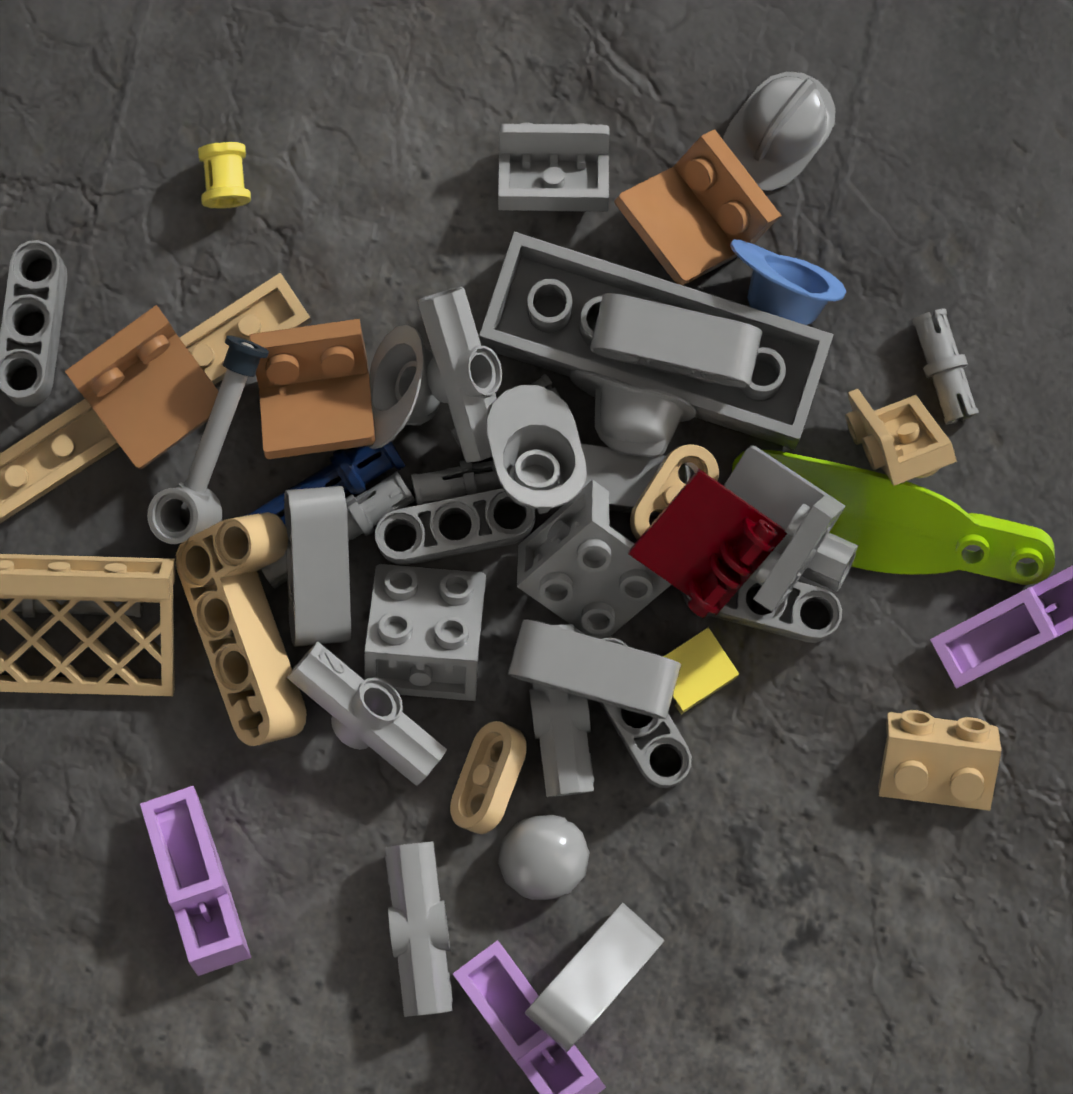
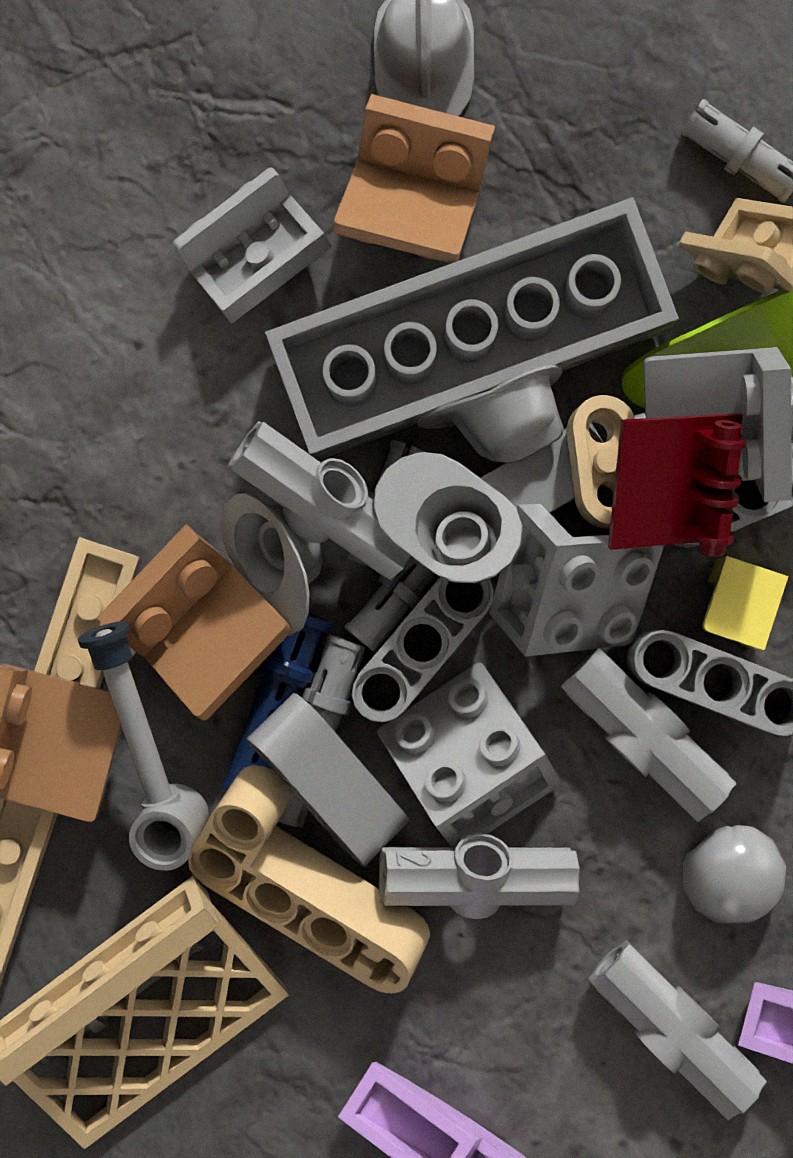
camera: 35 degrees left, 5 degrees up
(488, 777) = (631, 845): tan plate -> none
(594, 669) = (660, 679): light grey beam -> none
(676, 340) = (498, 315): light grey beam -> none
(787, 284) = (549, 186): medium blue piece -> none

